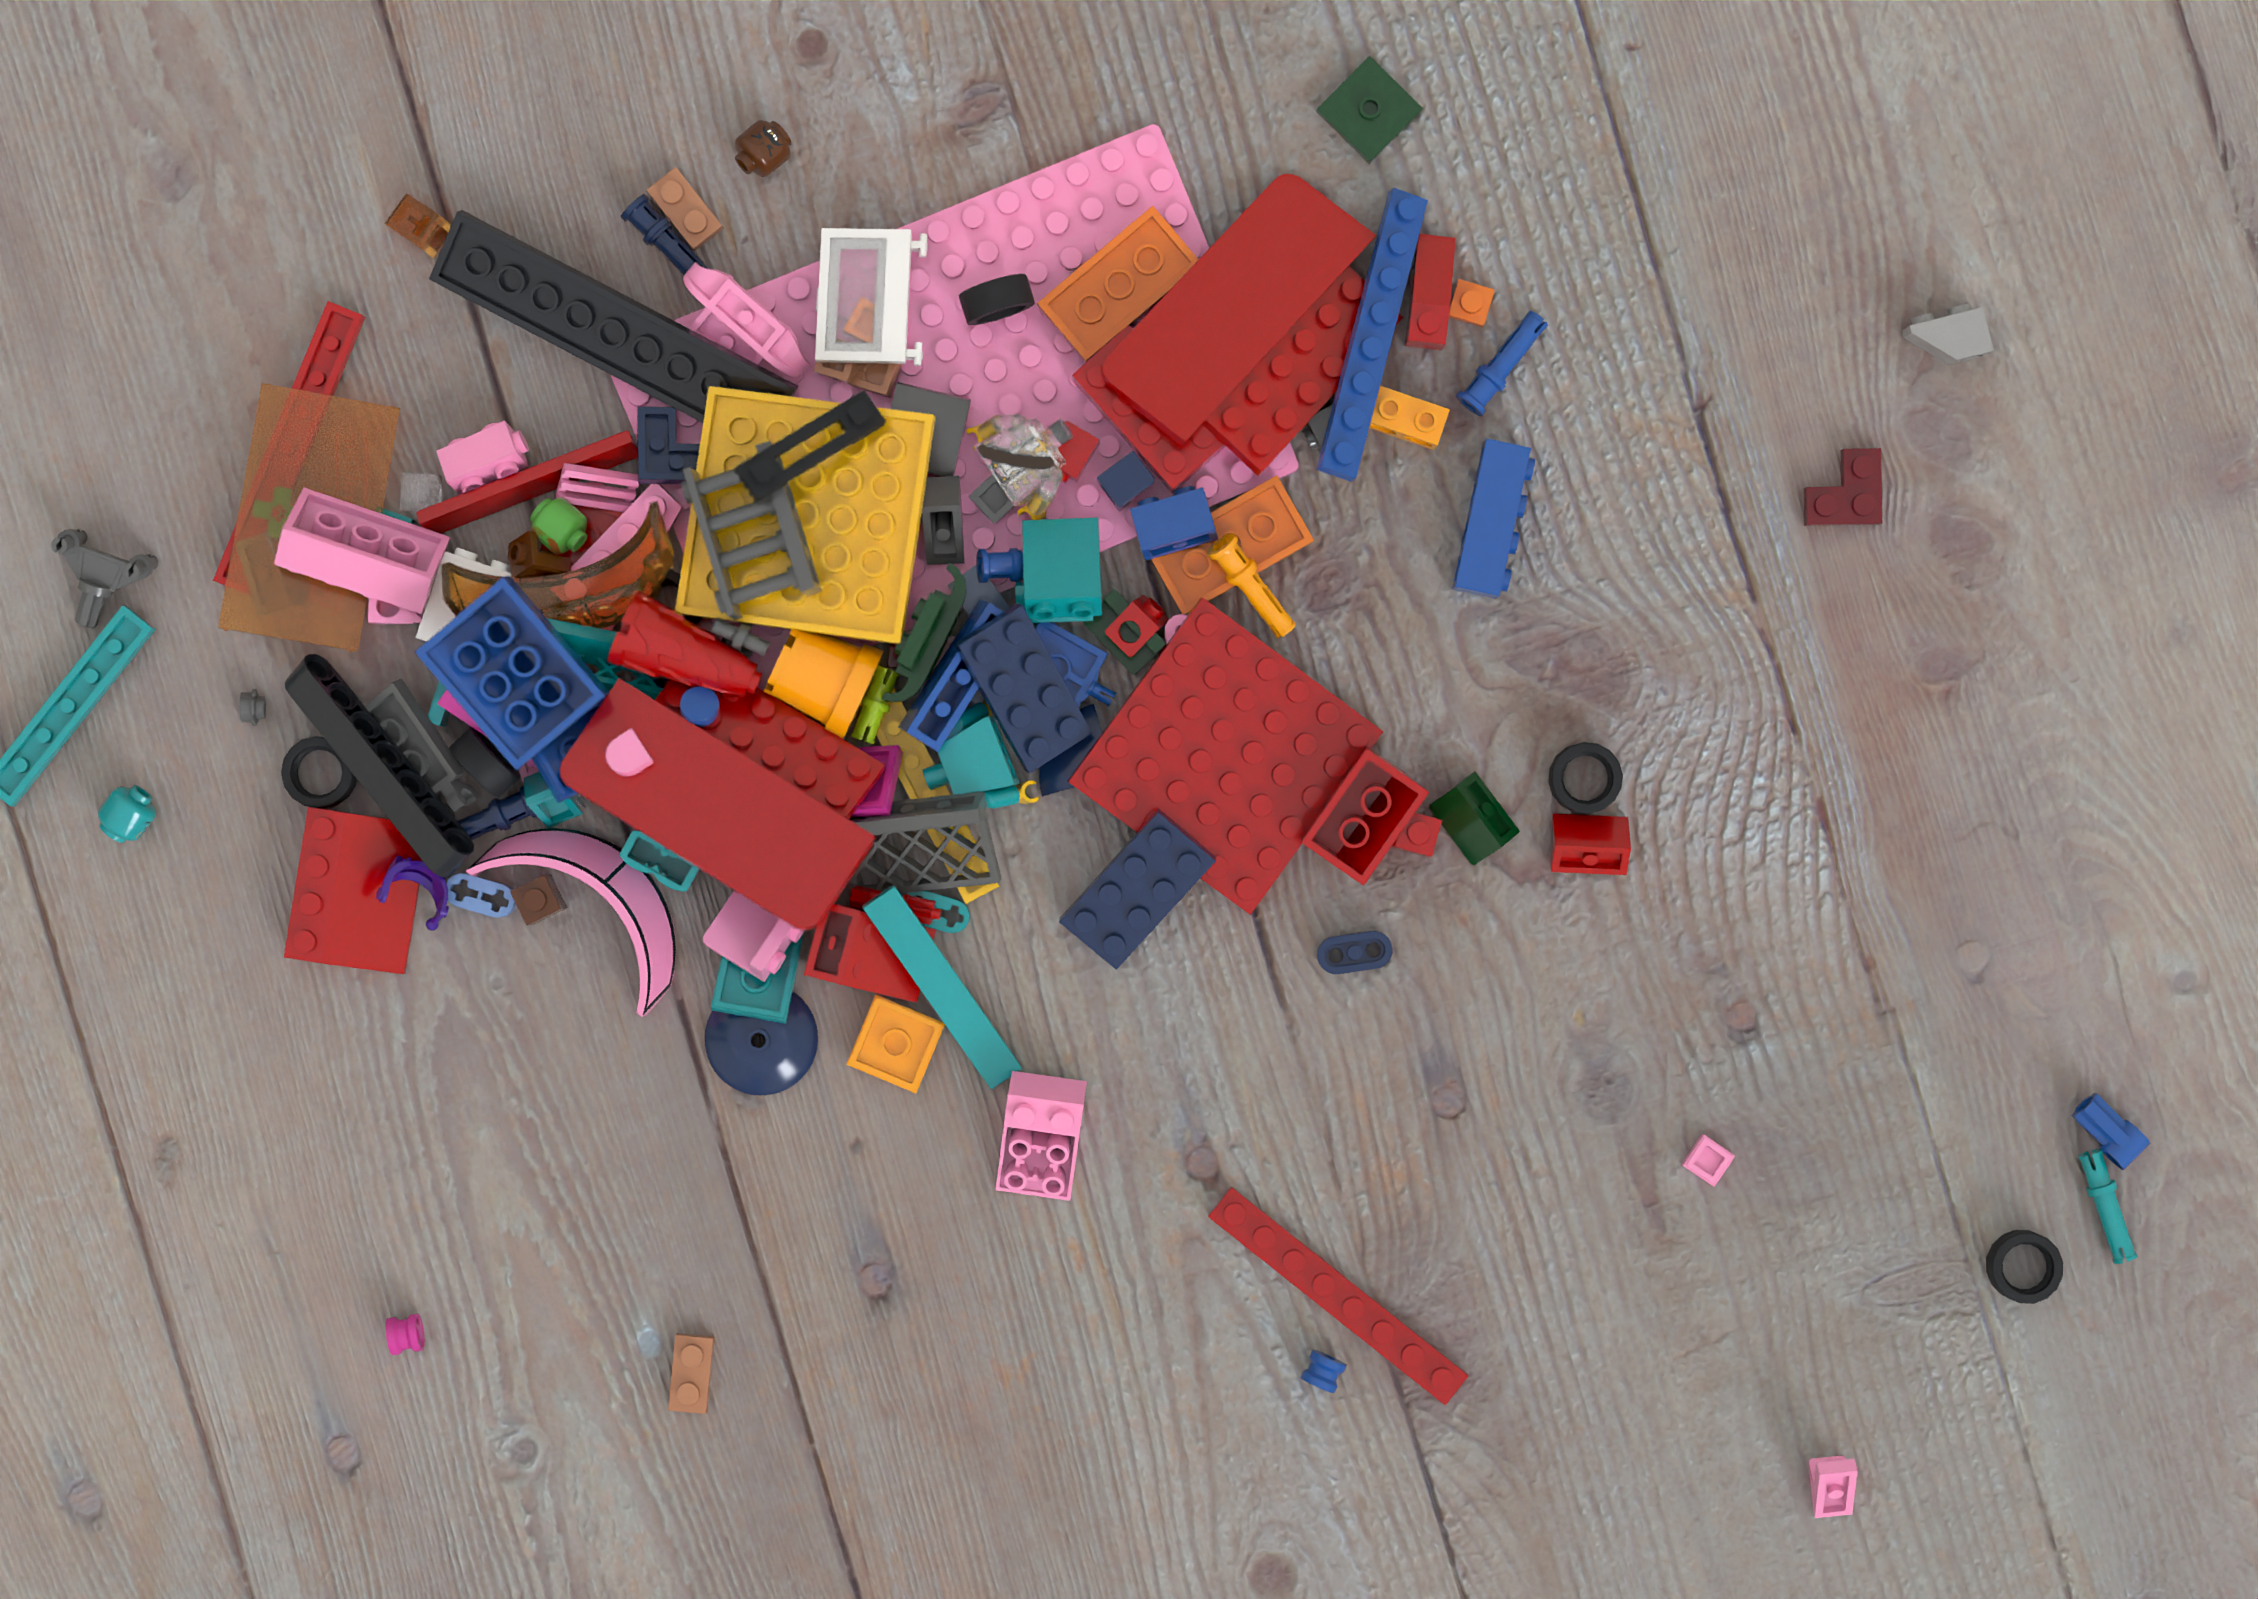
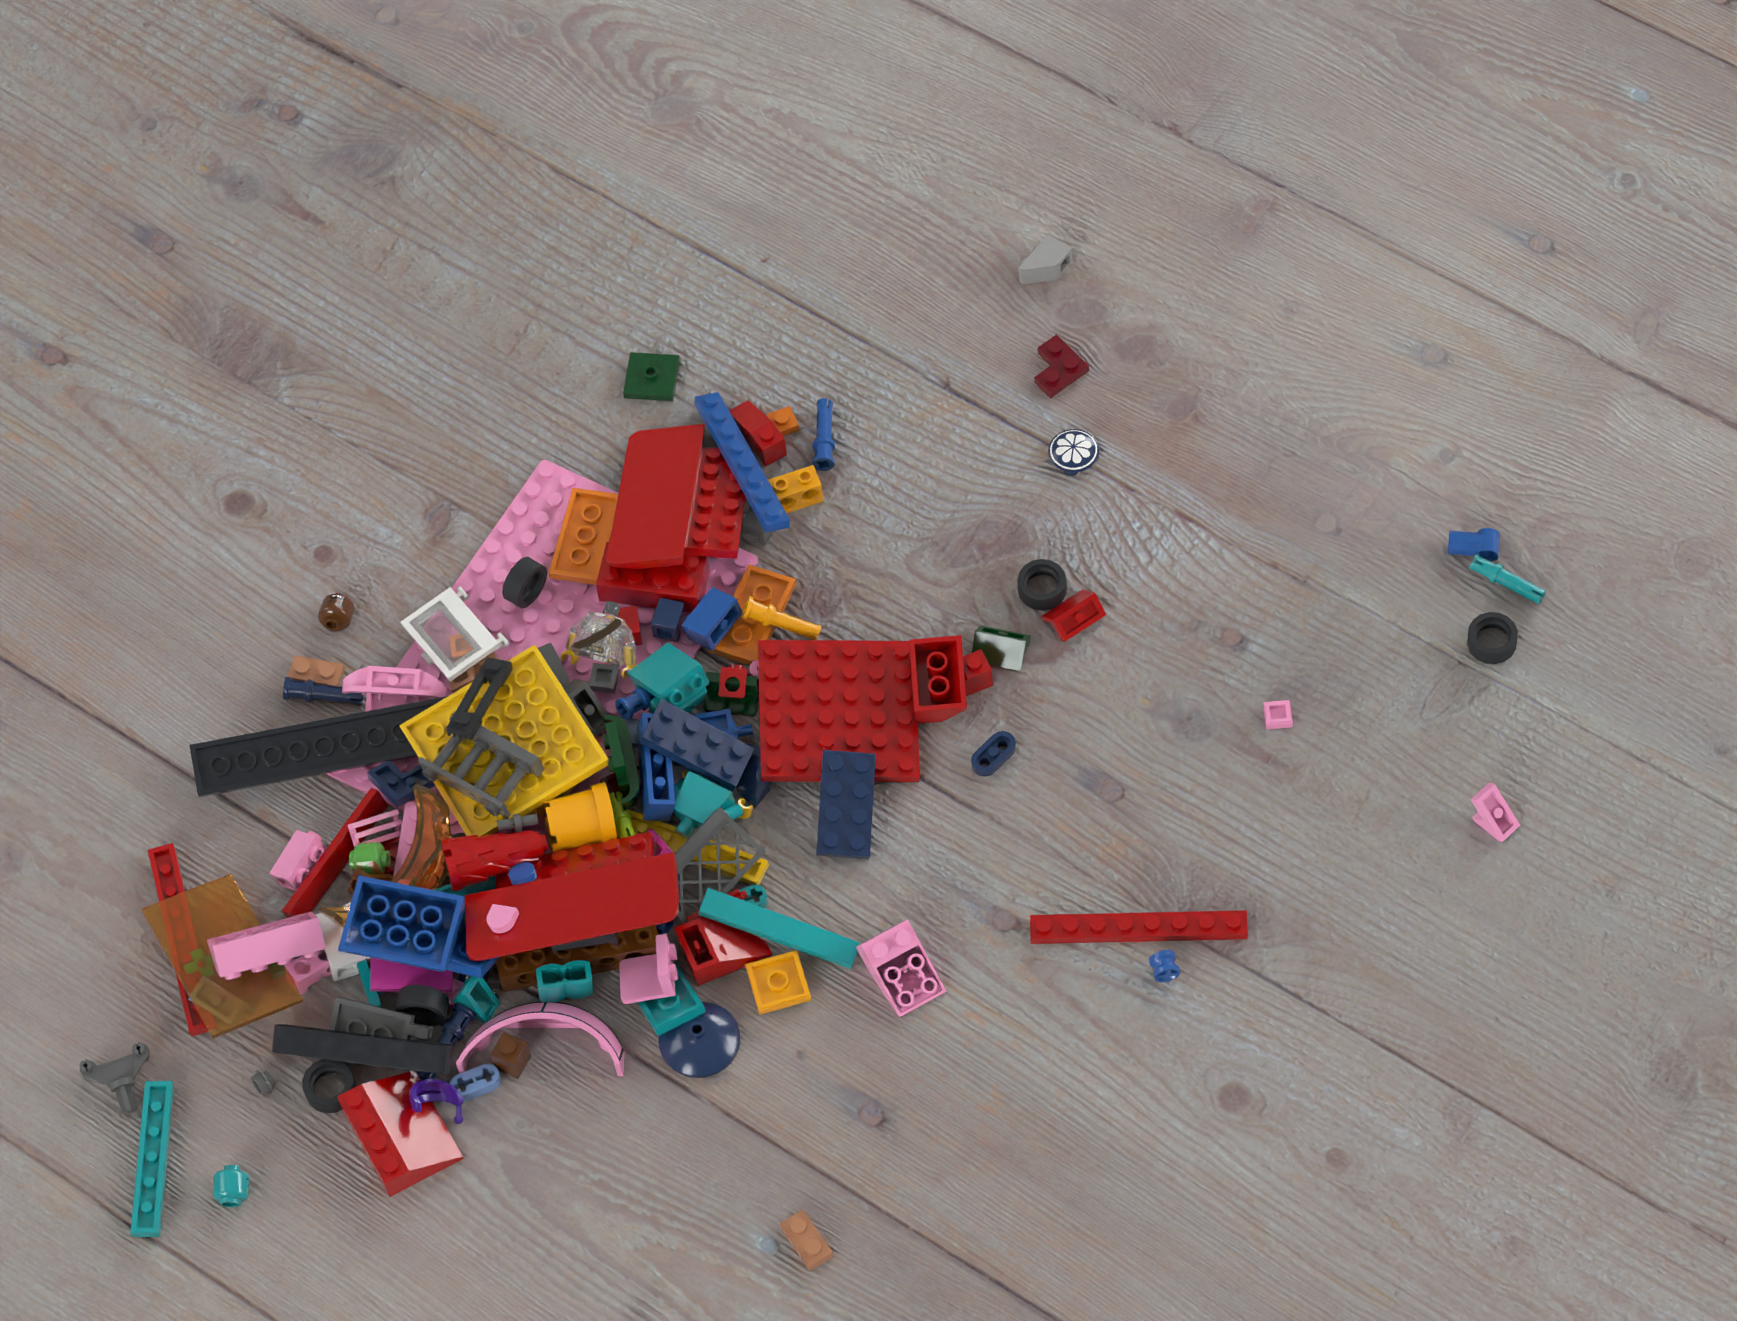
camera: 25 degrees left, 30 degrees down
(419, 225) = (172, 779): clear orange slope -> none
(1492, 519) = (882, 504): blue brick -> none
(1769, 624) = (1073, 451): none -> dish

